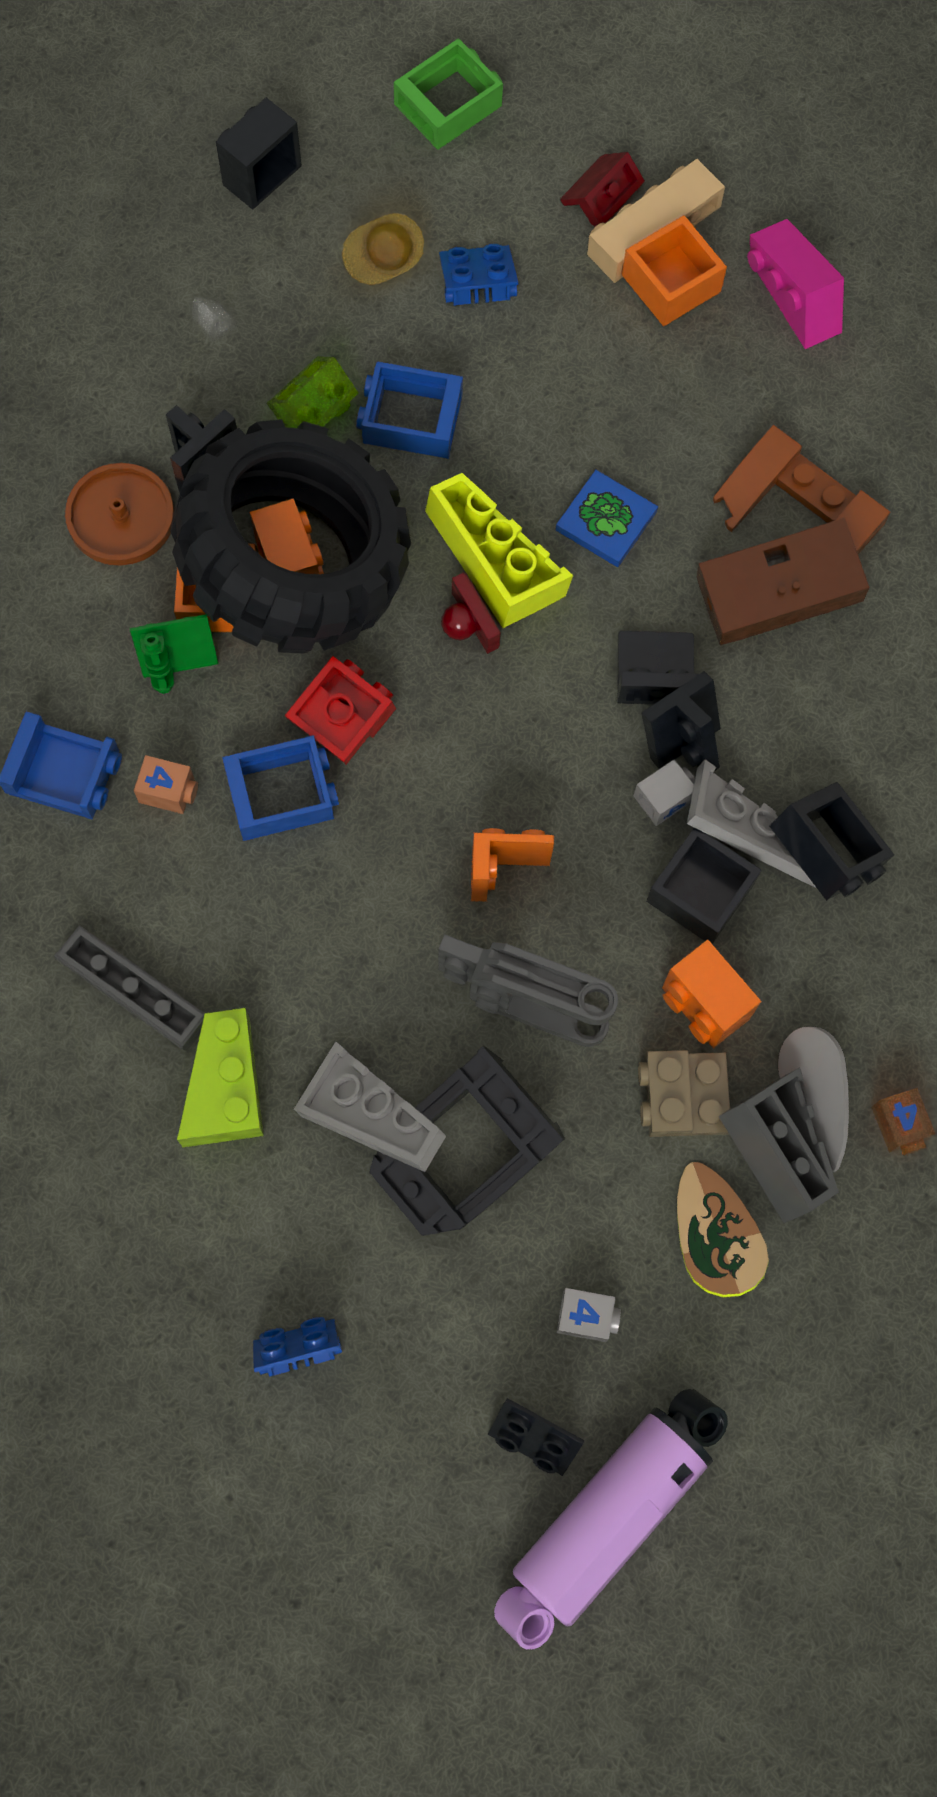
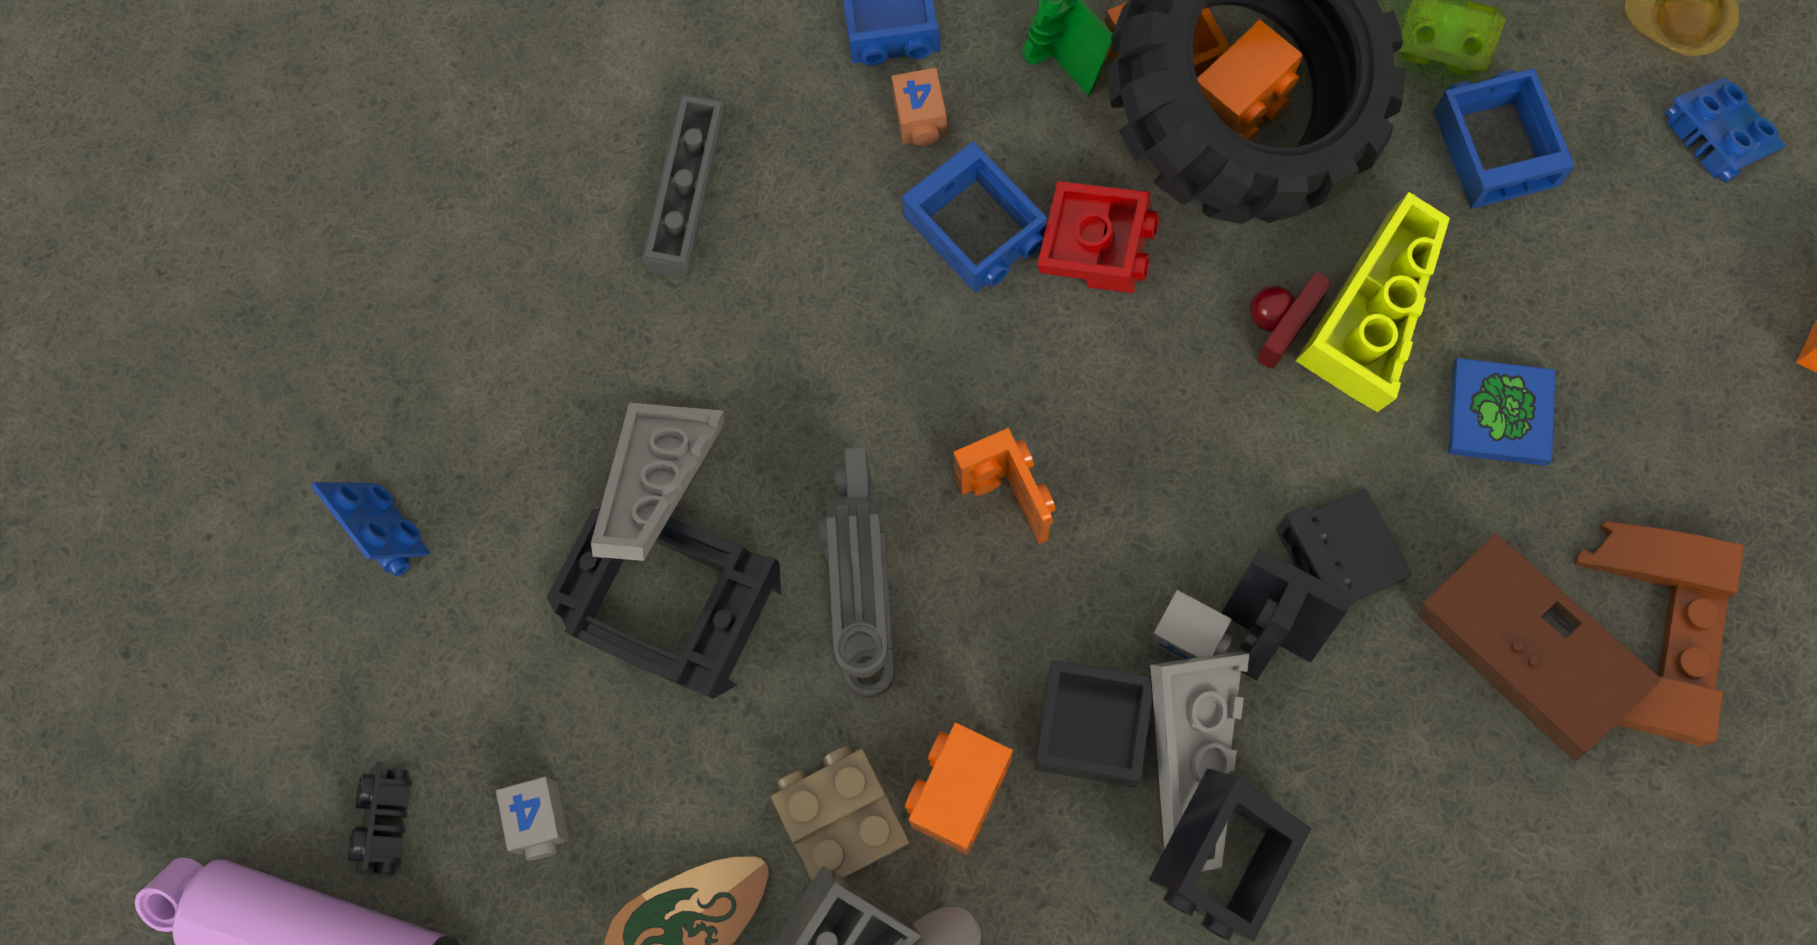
camera: 75 degrees right, 0 degrees up
(223, 1083) = (625, 317): lime wedge -> none

